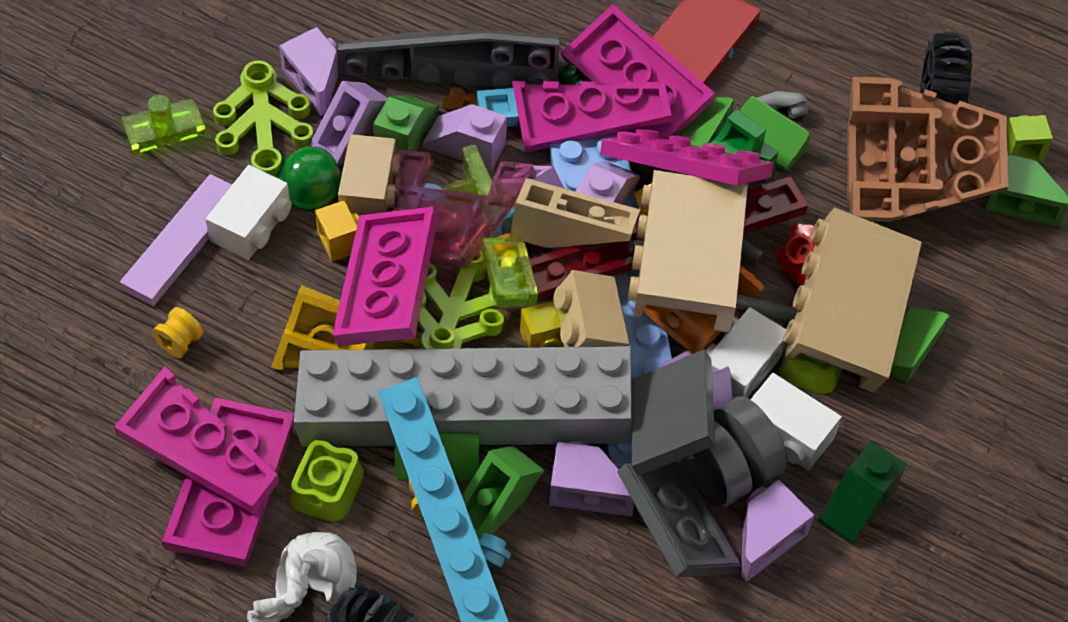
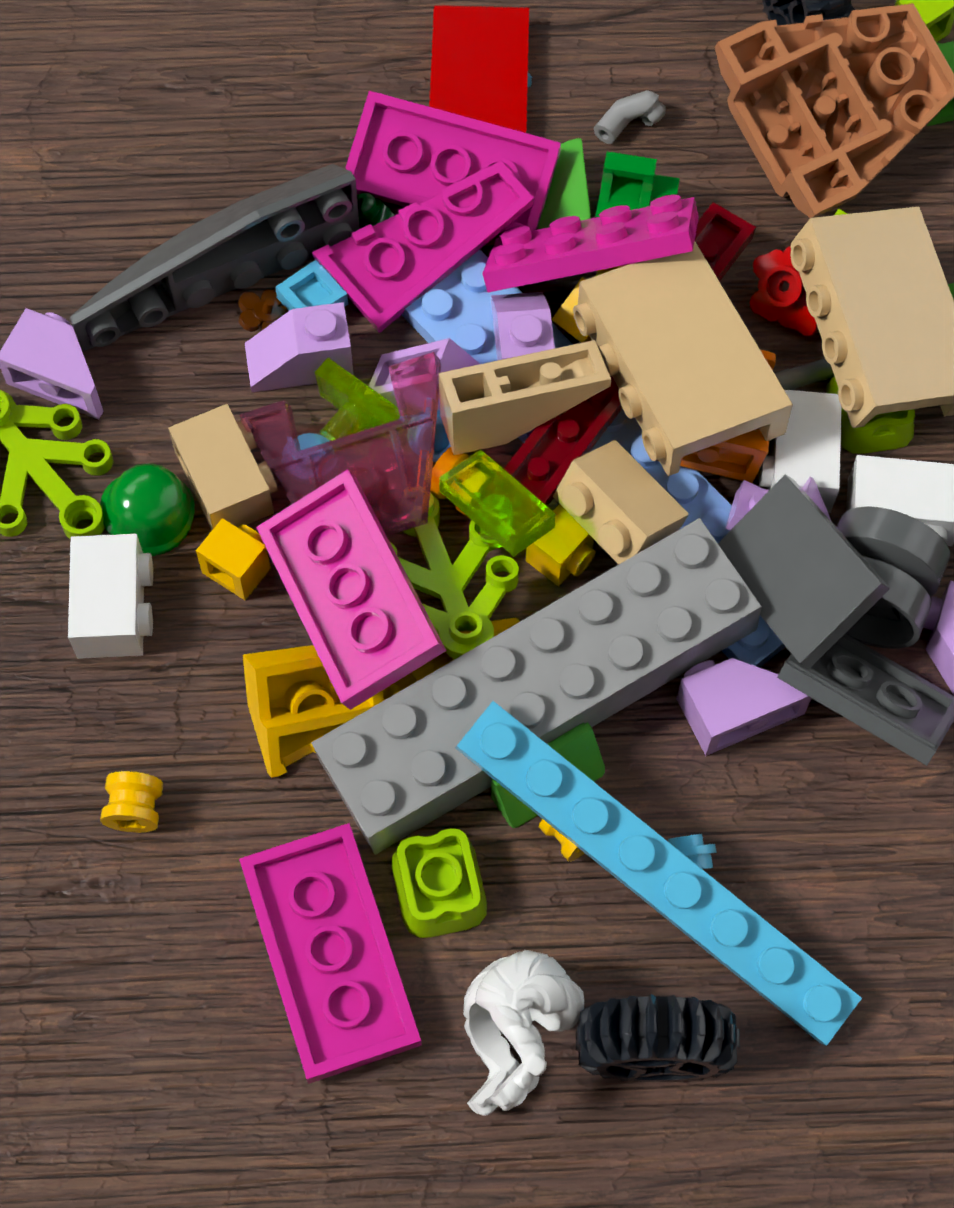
camera: 30 degrees left, 10 degrees up
(174, 245) = (43, 682): lavender tile -> none
(187, 437) = (255, 933): dark pink wing -> none
(349, 113) = (146, 405): lavender slope -> none
(405, 121) = (214, 372): bright green slope -> none
(499, 488) = (651, 768): bright green slope -> none
(781, 133) = (671, 150): bright green slope -> none

